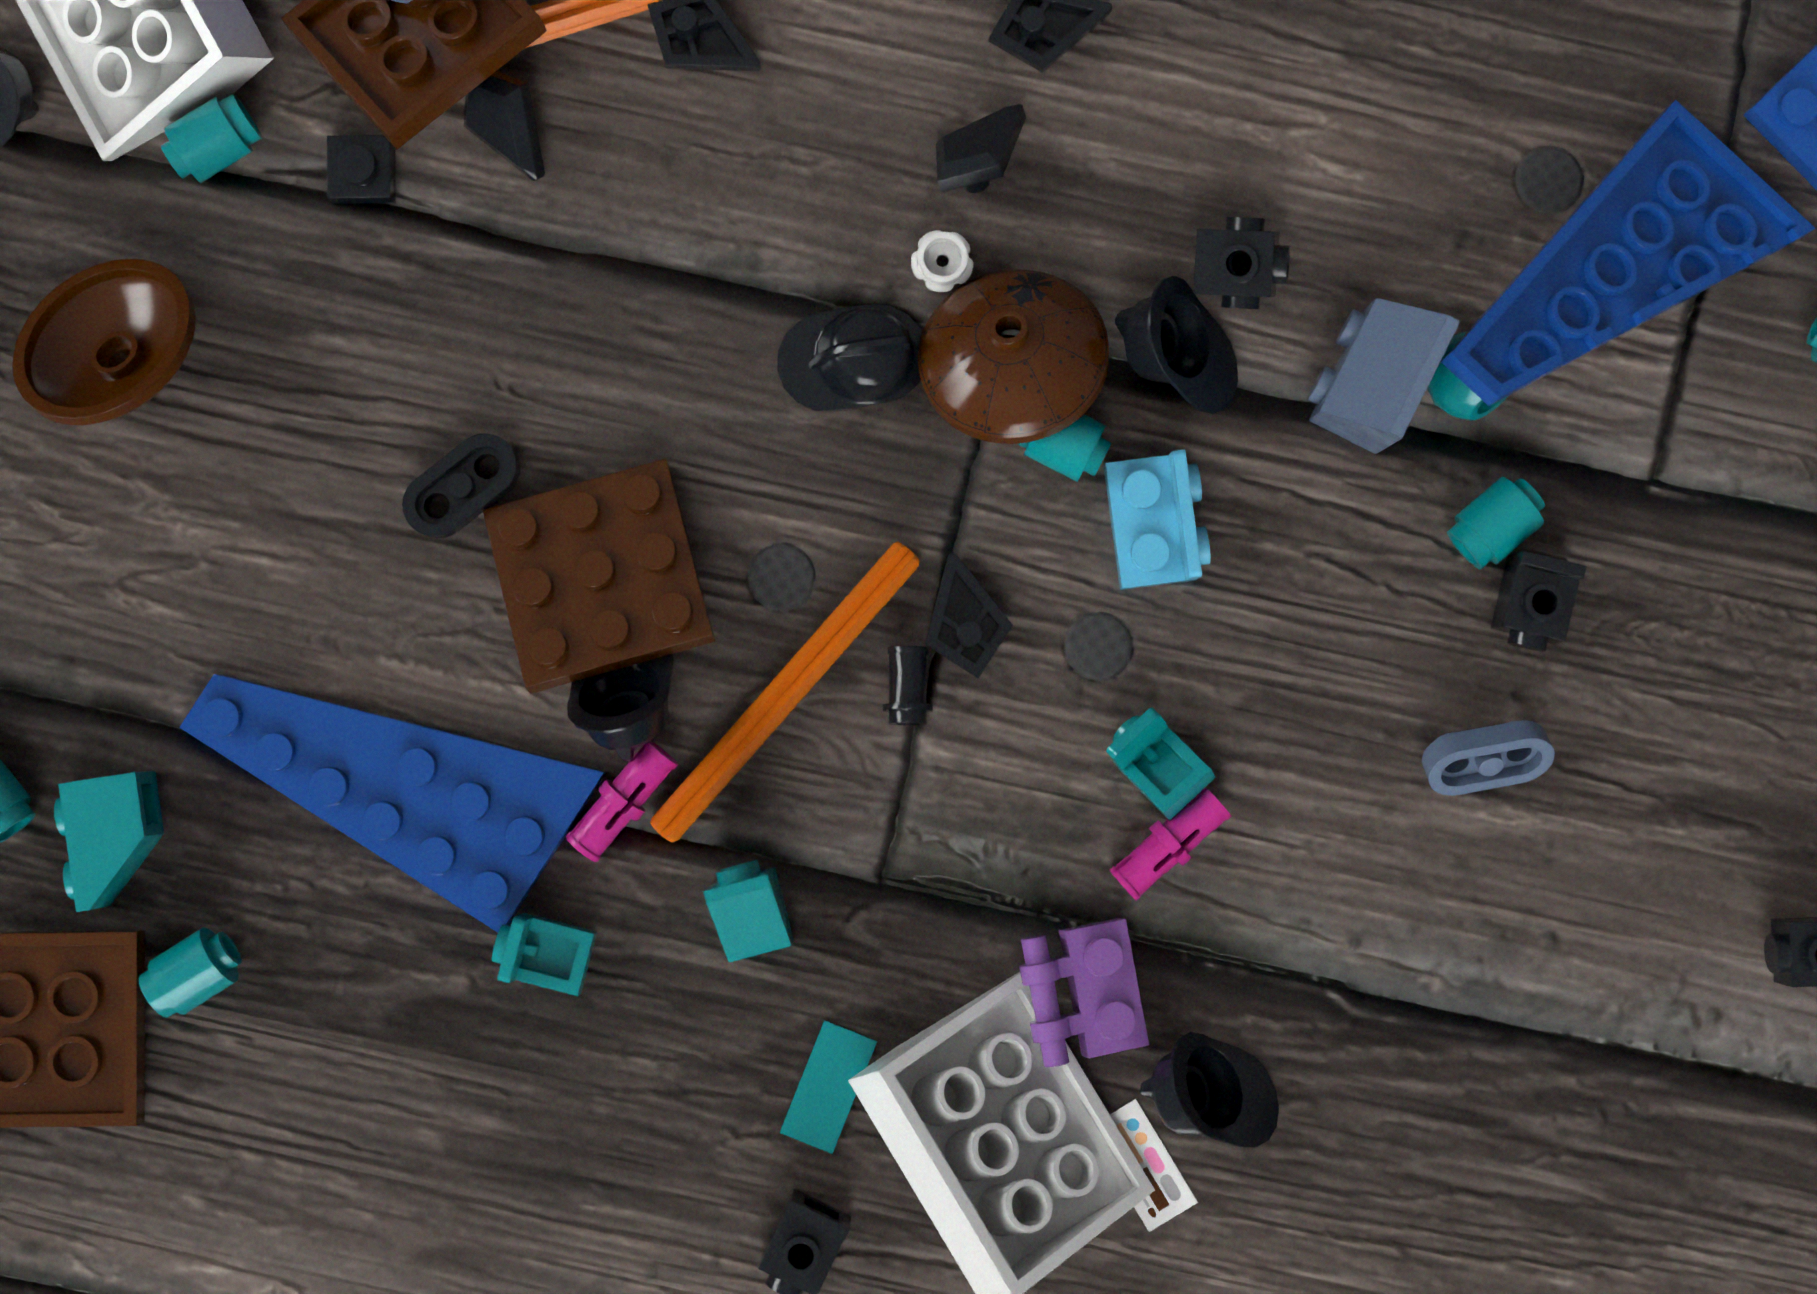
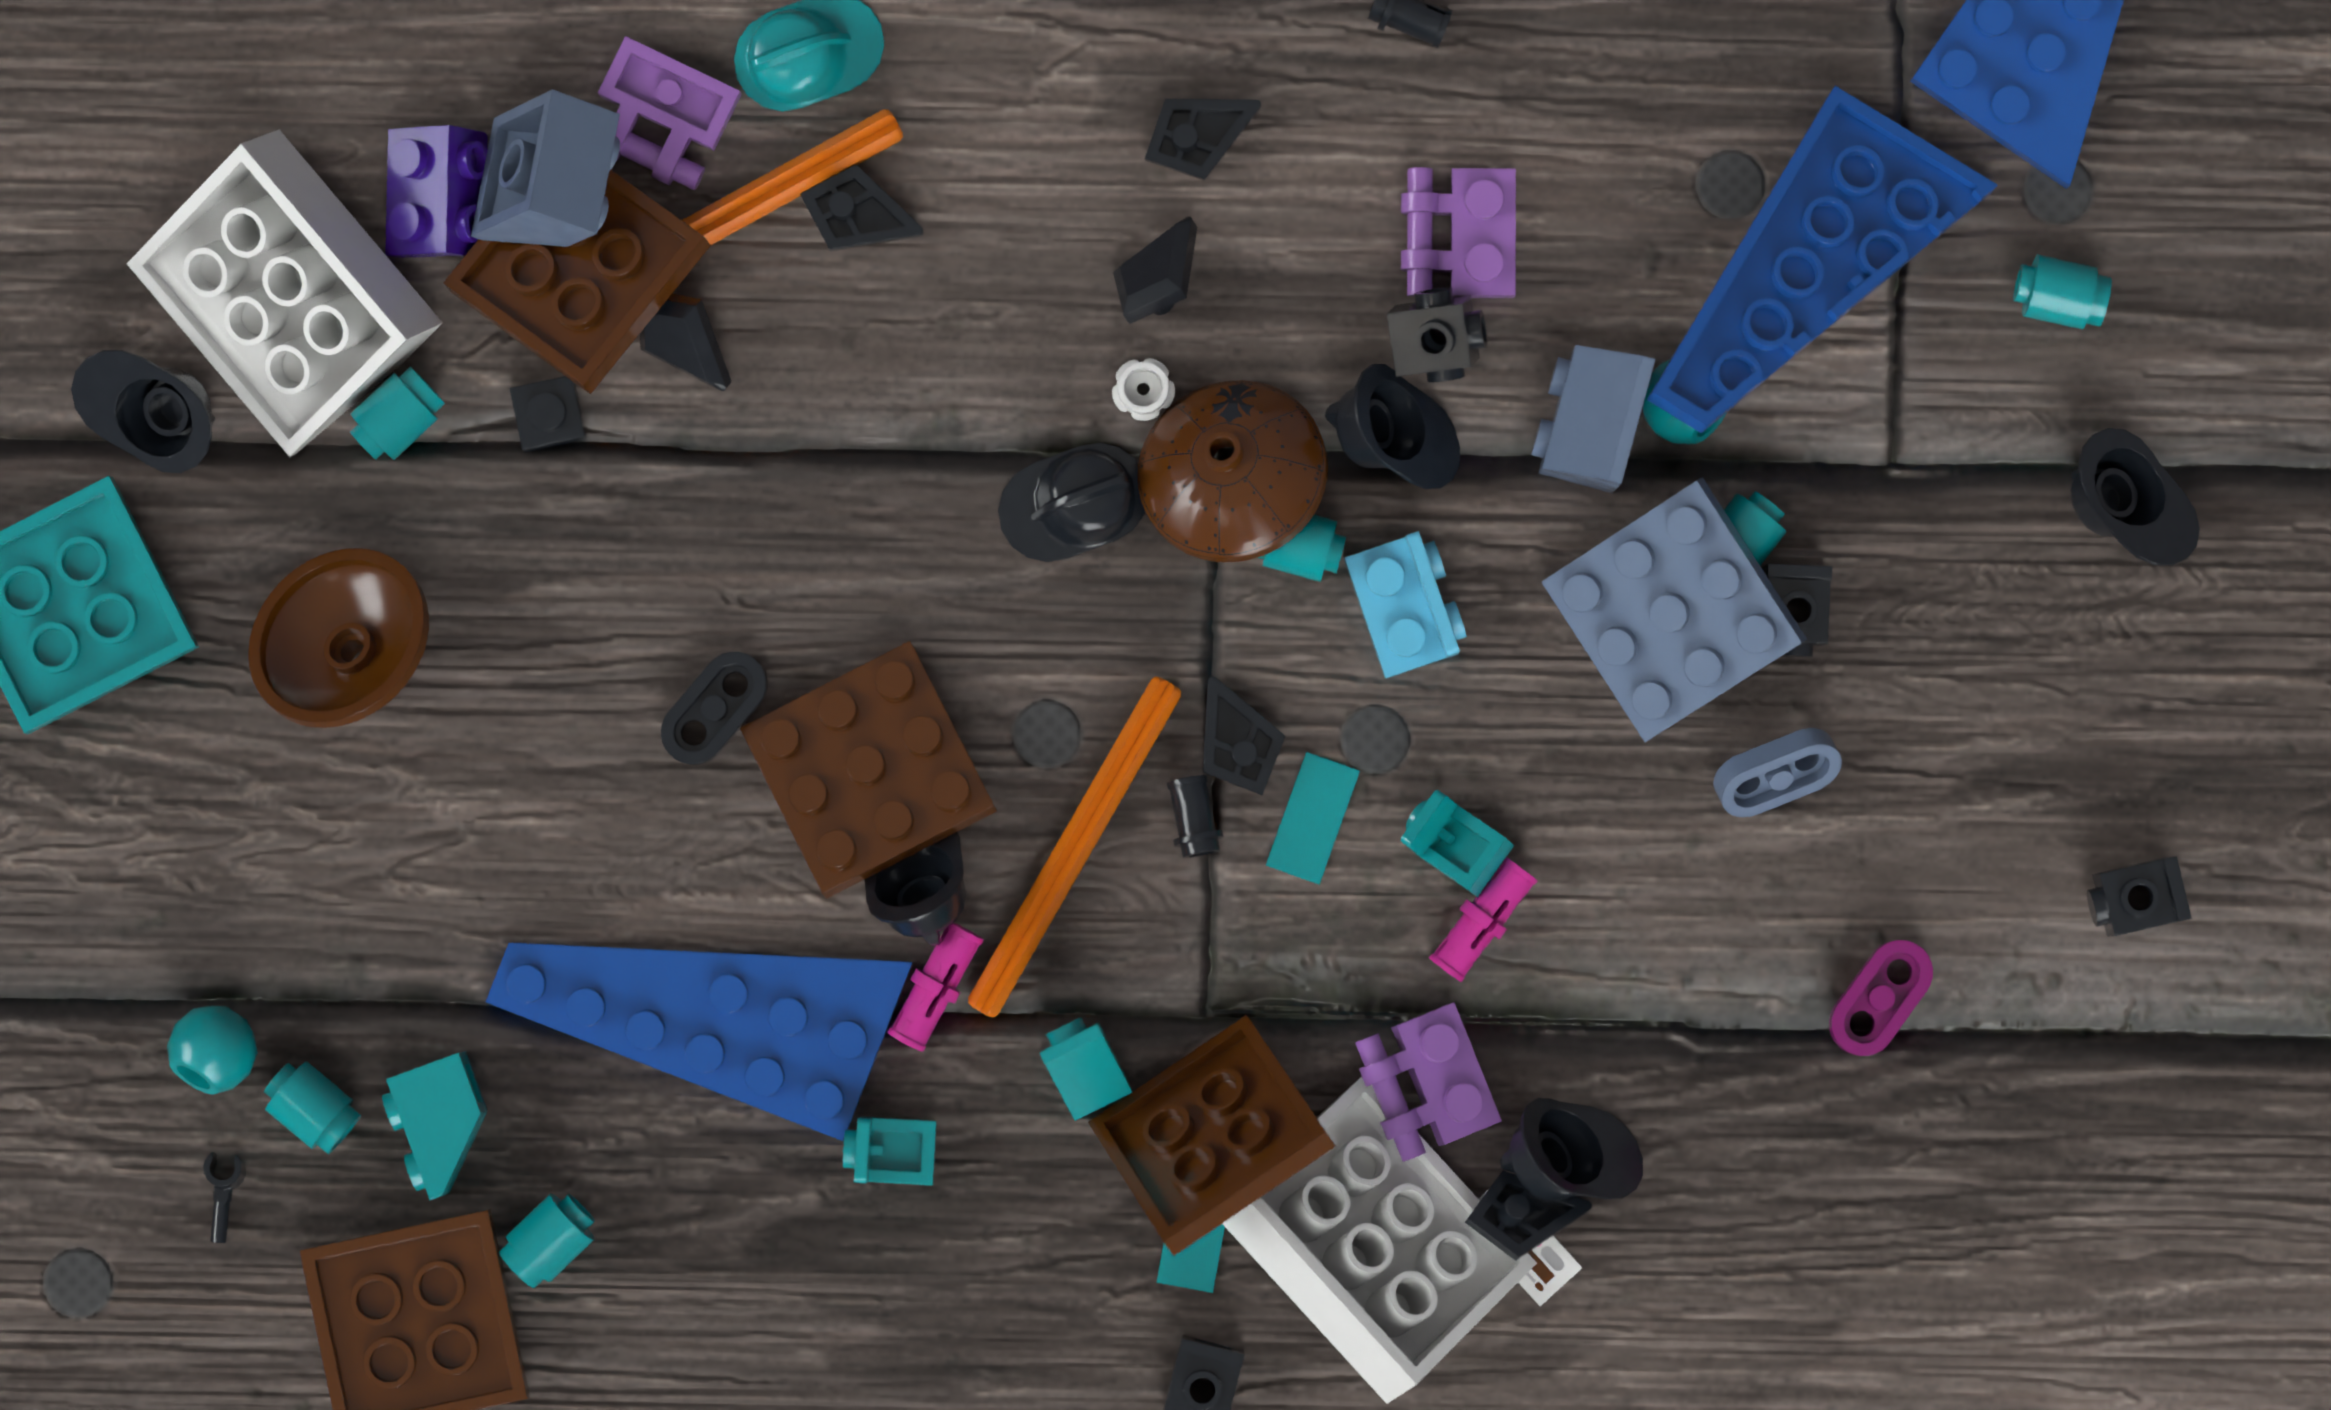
camera: 10 degrees left, 0 degrees up
(860, 1007) = (1211, 1135): none -> reddish brown plate
(1022, 710) = (1312, 818): none -> teal sticker
(1145, 1146) = (1519, 1220): none -> black piece
(1300, 176) = (1481, 231): none -> medium lavender plate
(1420, 578) = (1674, 610): none -> sand blue plate
(1546, 1004) = (1880, 998): none -> magenta plate

